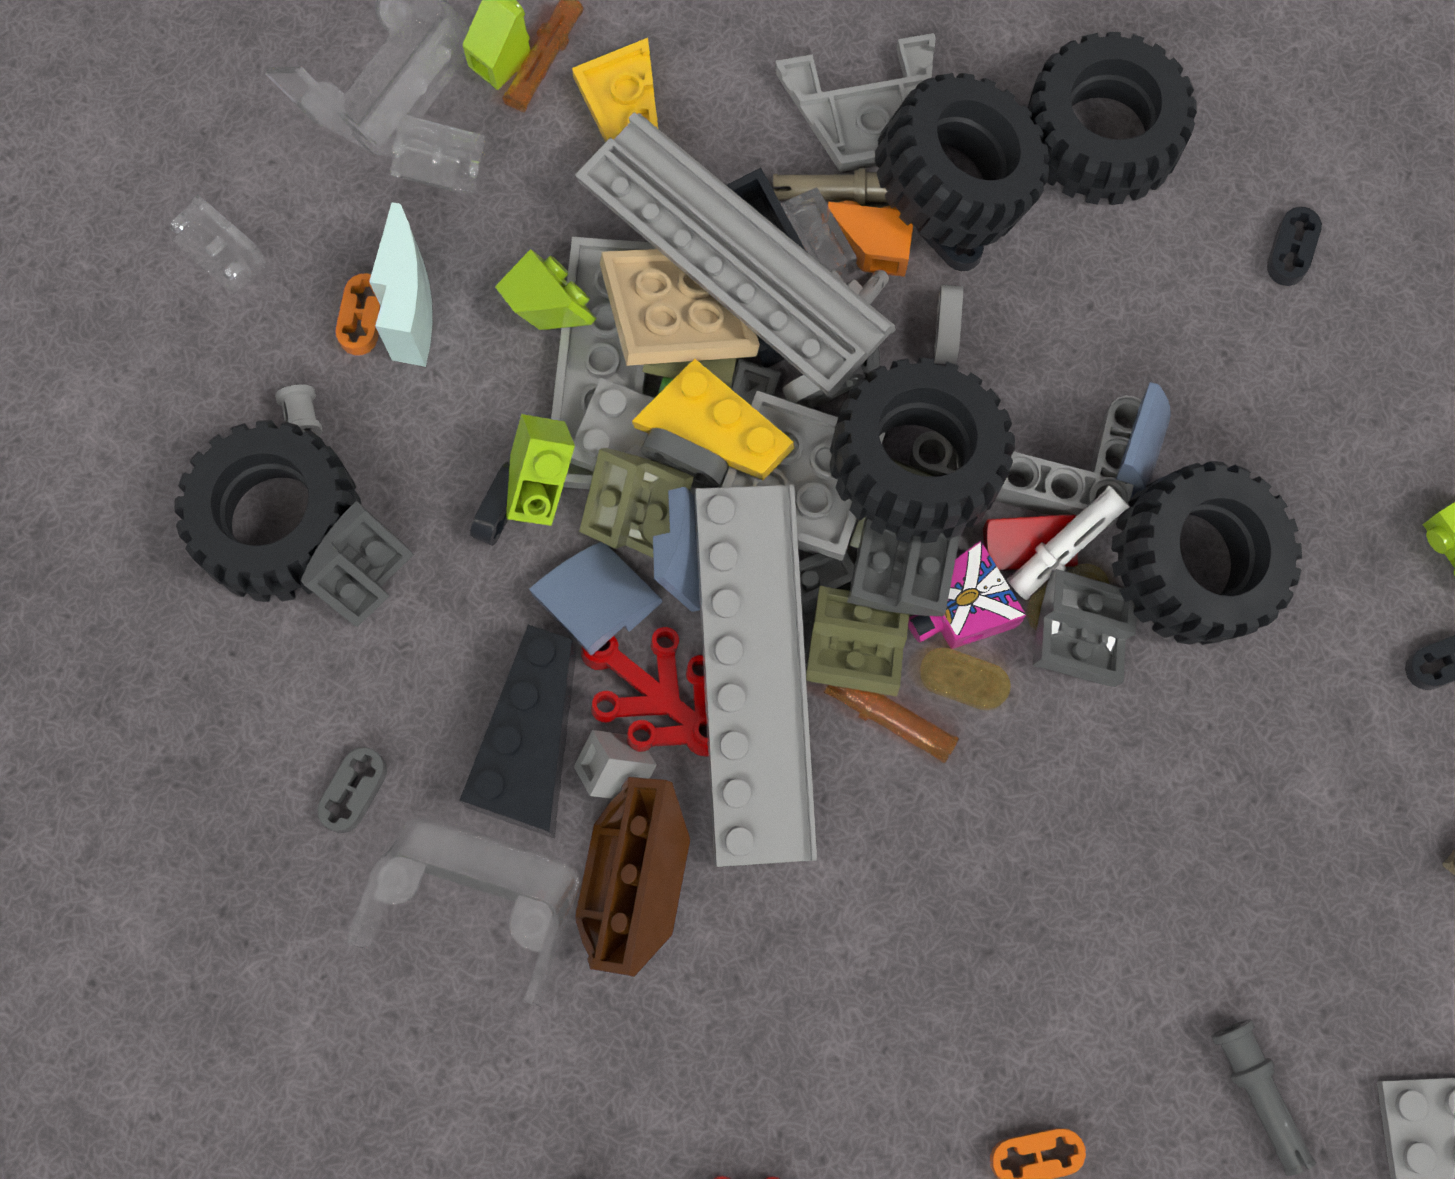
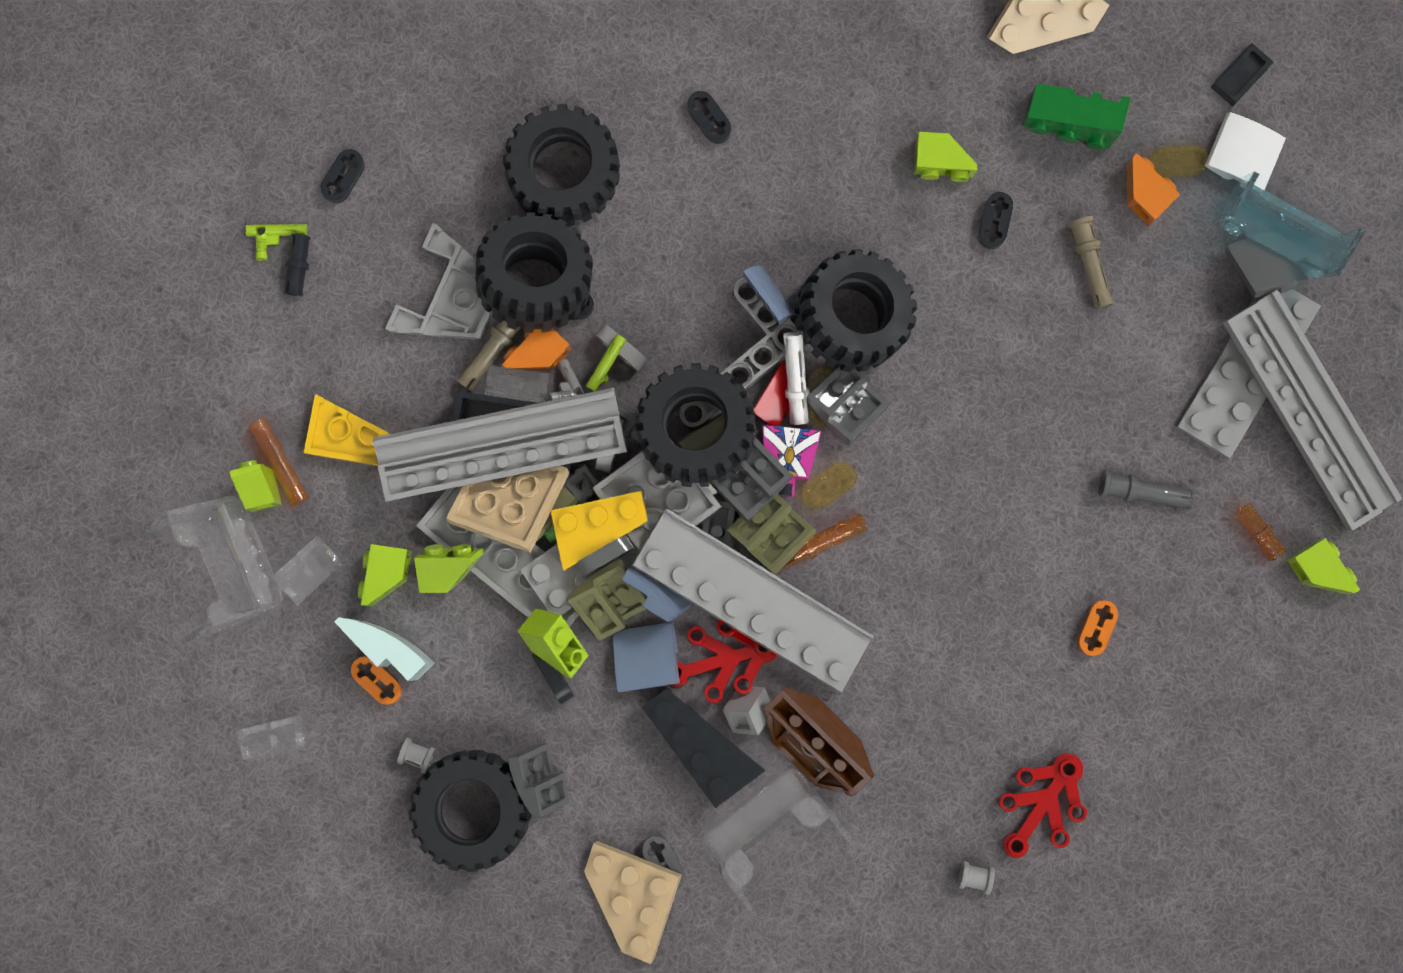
camera: 55 degrees left, 10 degrees up
(284, 781) = (633, 897): none -> tan plate
(491, 238) = (385, 572): none -> lime slope
(914, 313) = (600, 374): none -> lime hose

